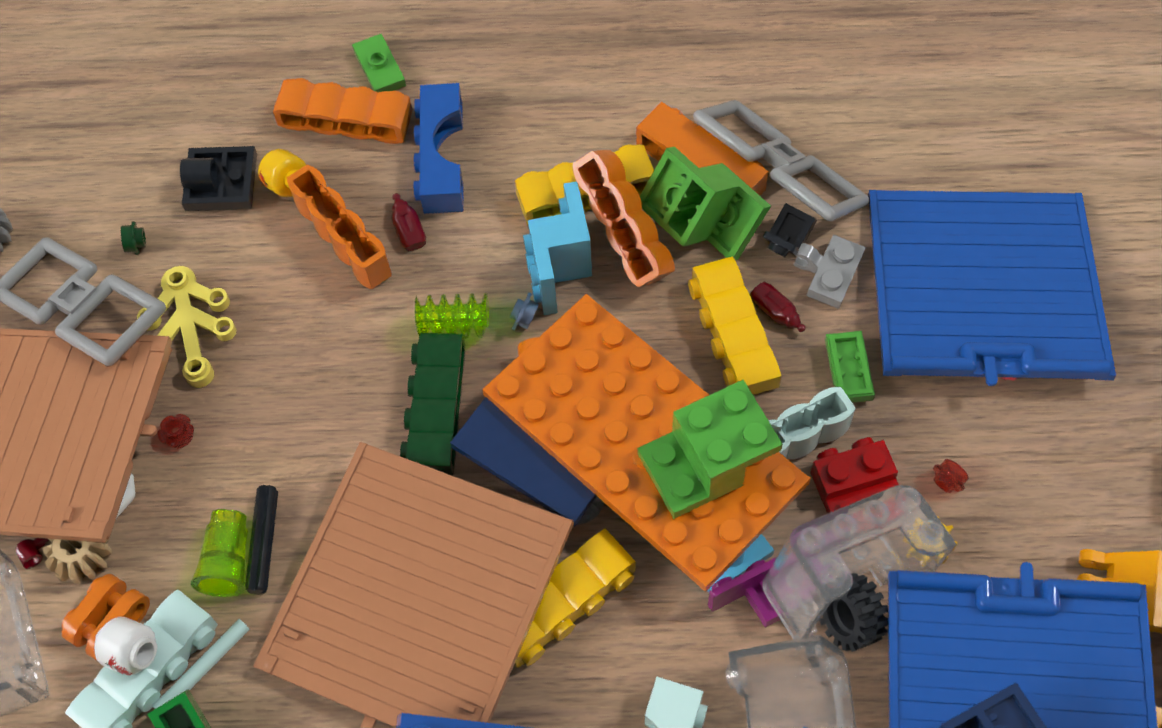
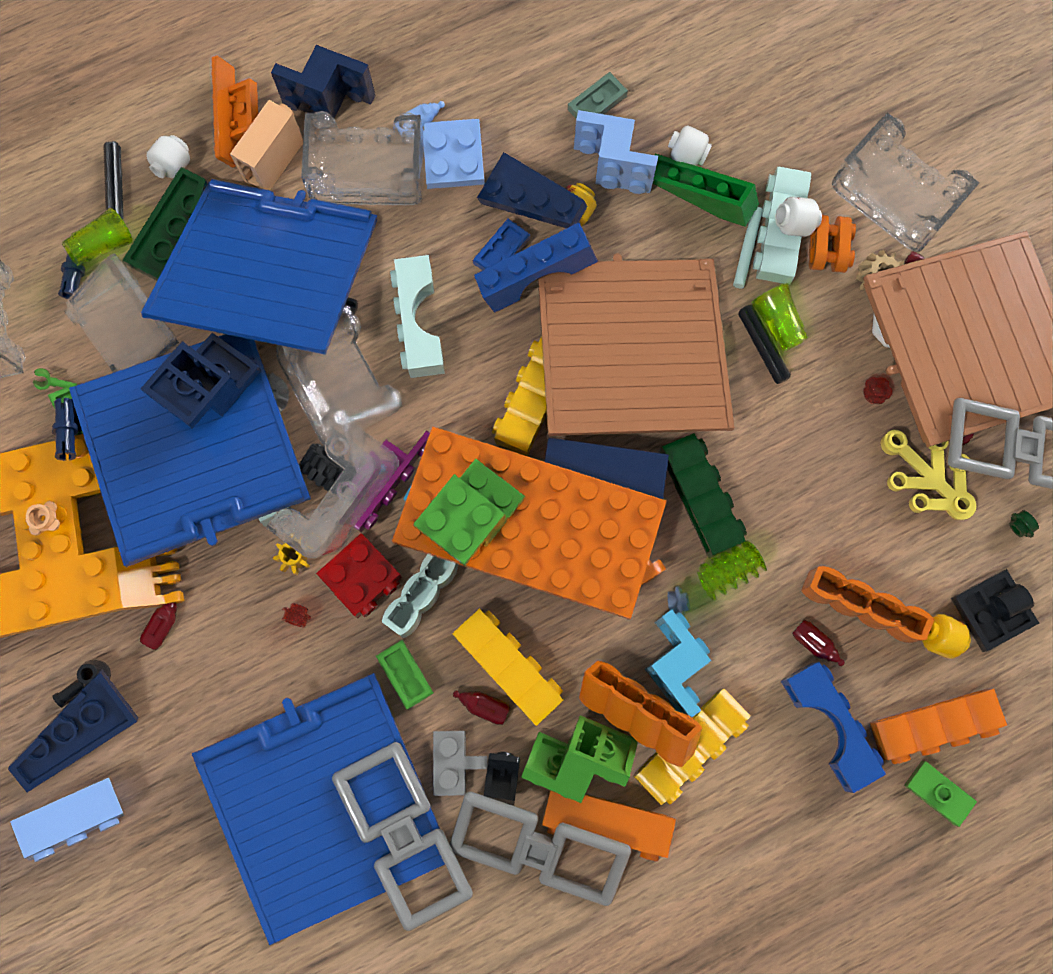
camera: 150 degrees right, 15 degrees up
(913, 226) = (402, 836): none -> light grey bar
(1120, 534) = (159, 626): none -> dark red piece

